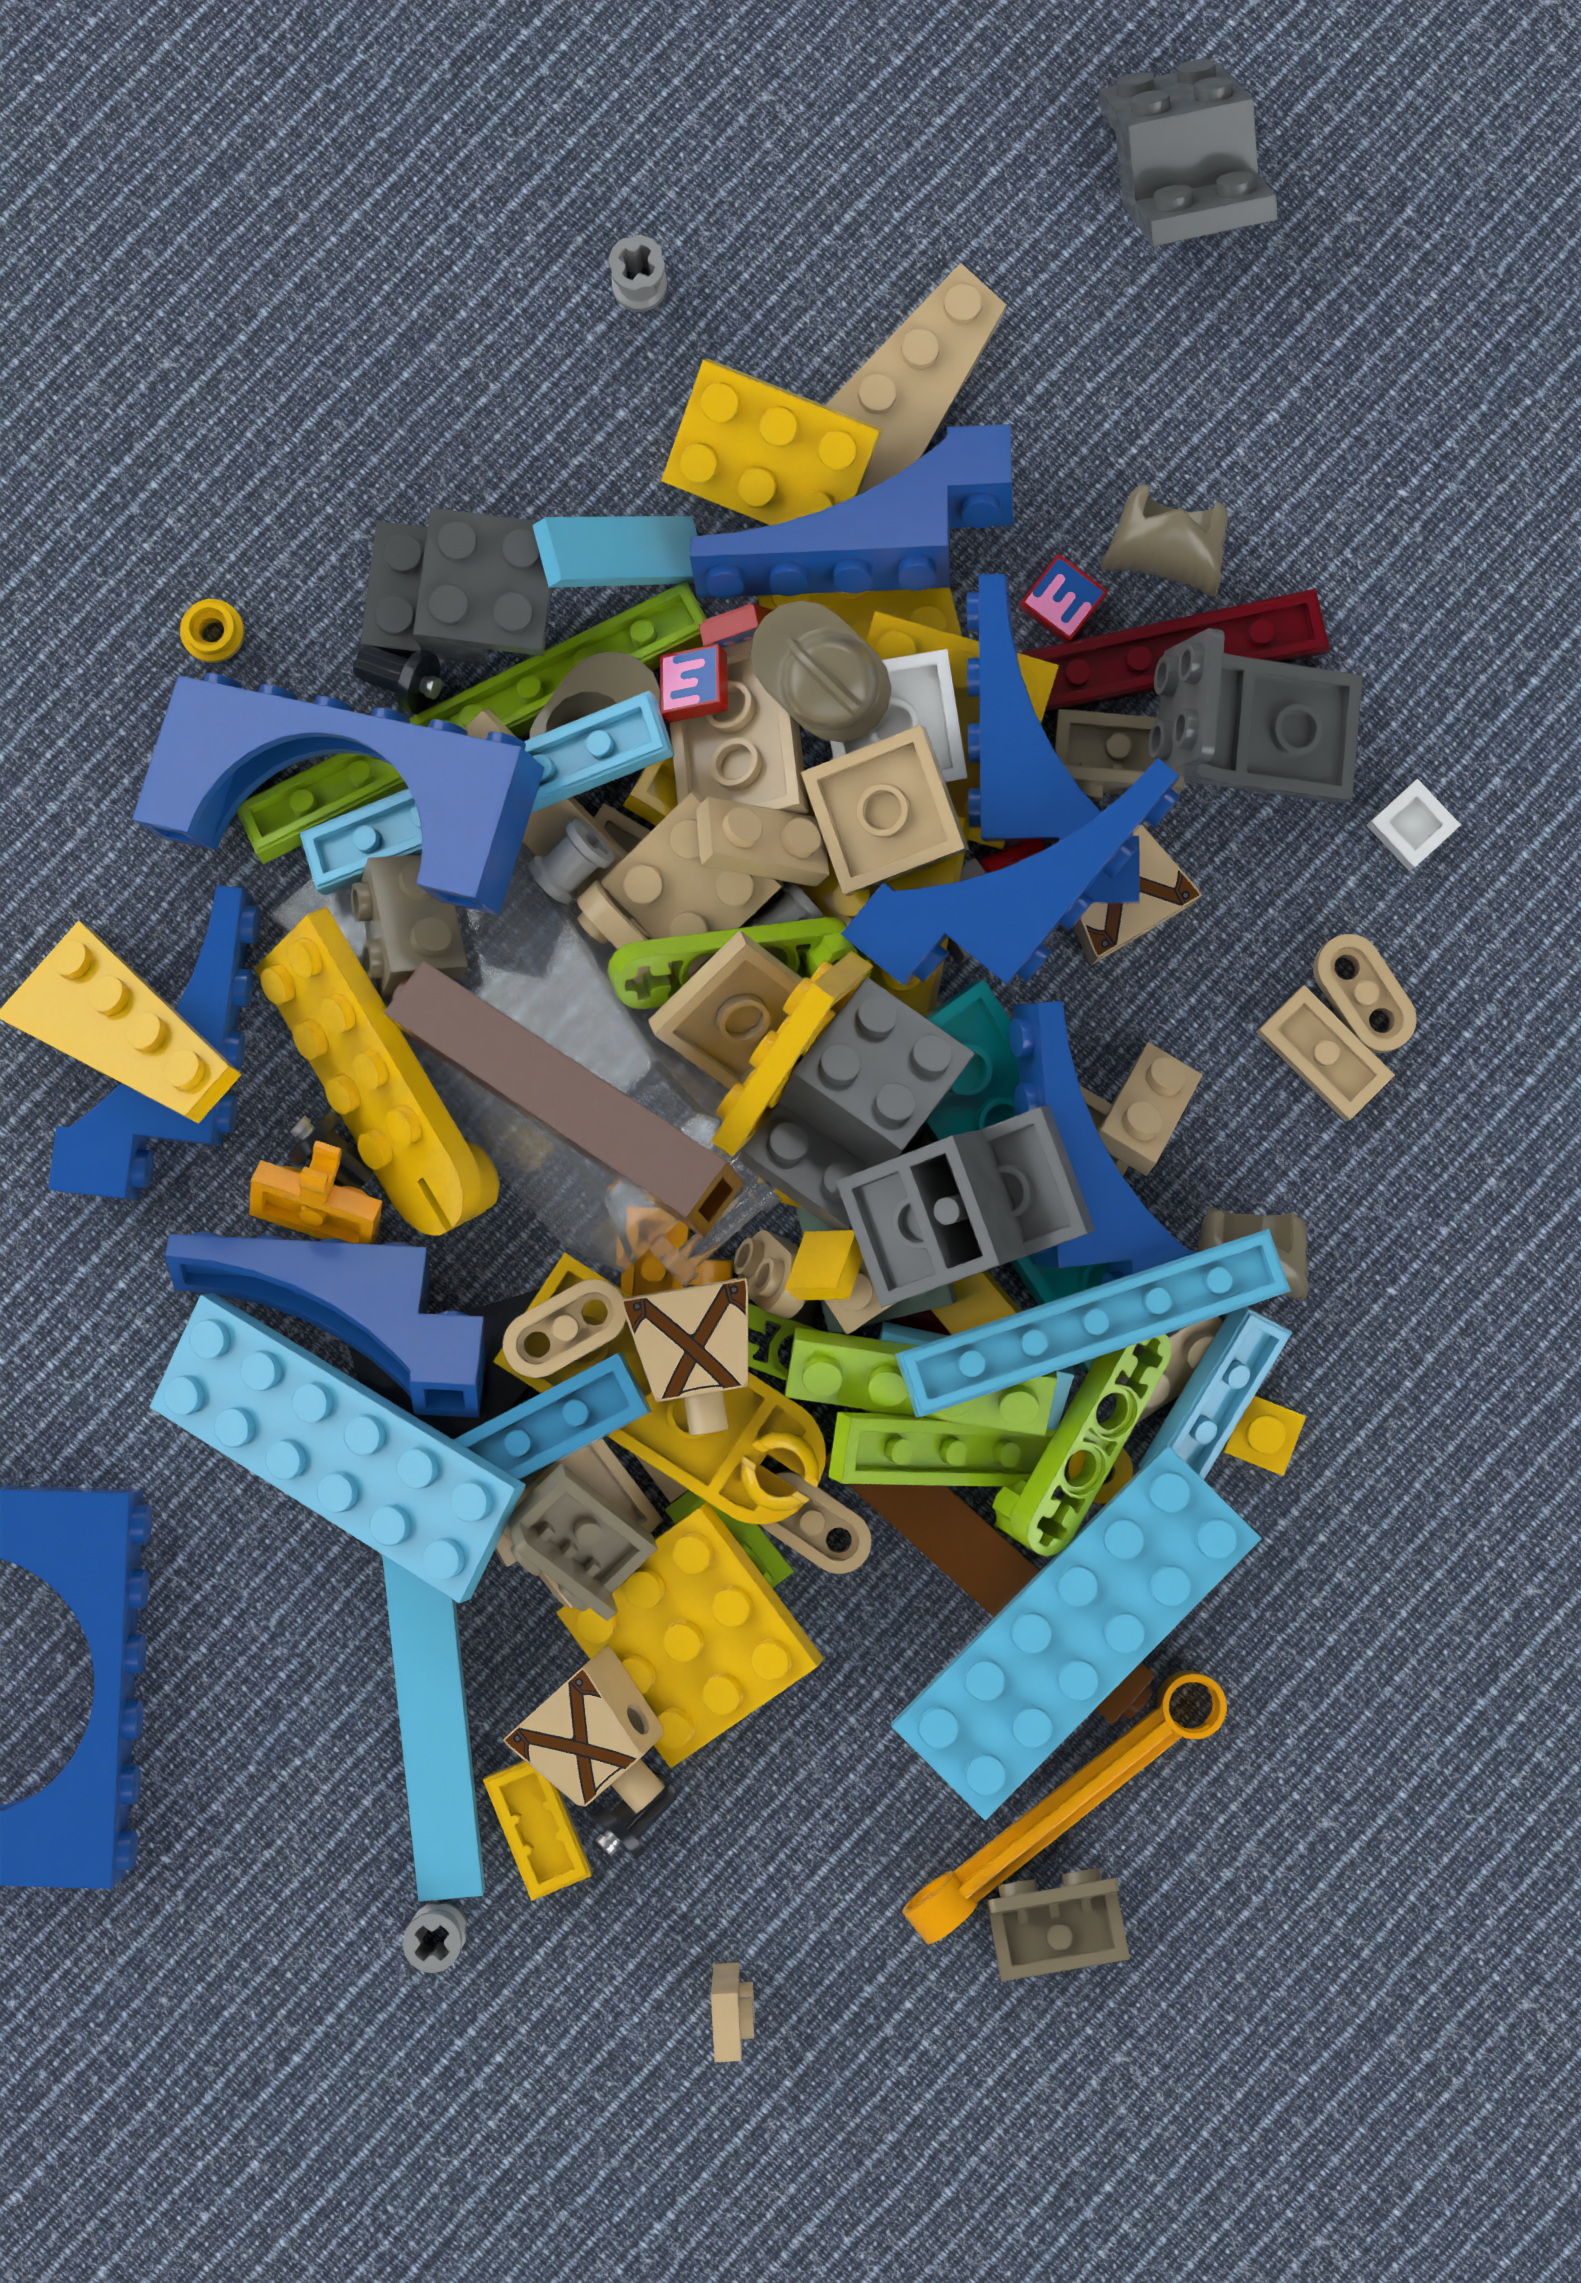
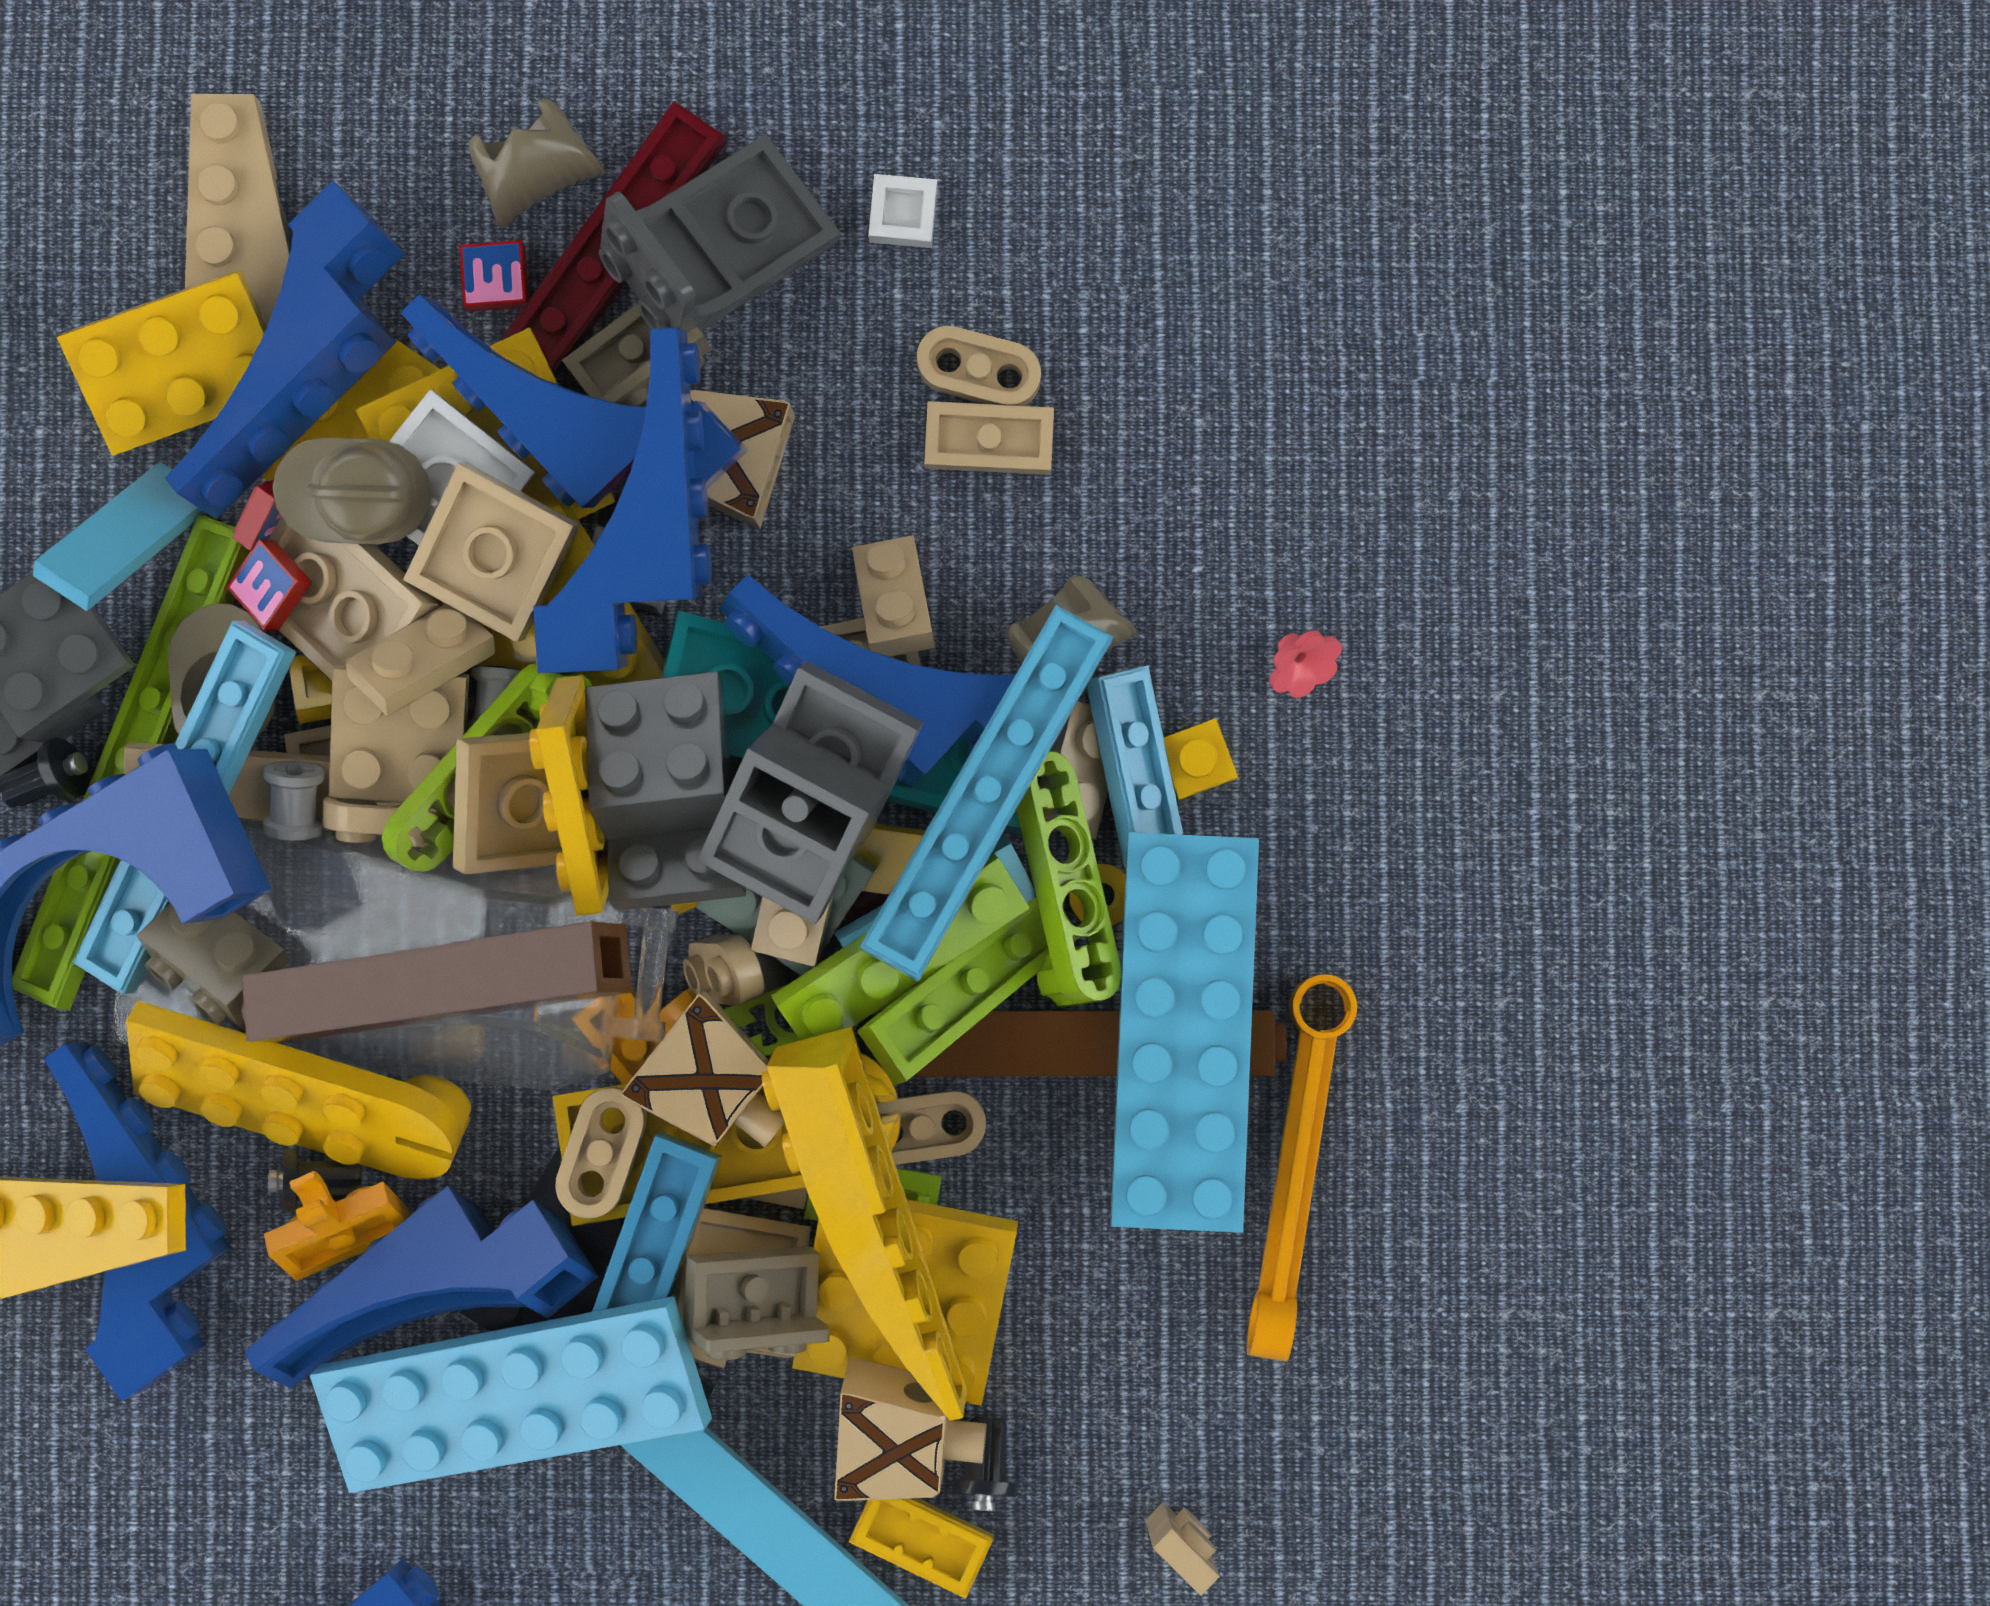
camera: 35 degrees left, 0 degrees up
(727, 1539) = (861, 1202): none -> yellow wedge
(825, 1266) = (750, 931): yellow tile -> none
(1057, 1926) = (1369, 1260): dark tan bracket -> none
(1410, 1435) = (1304, 662): none -> coral plant

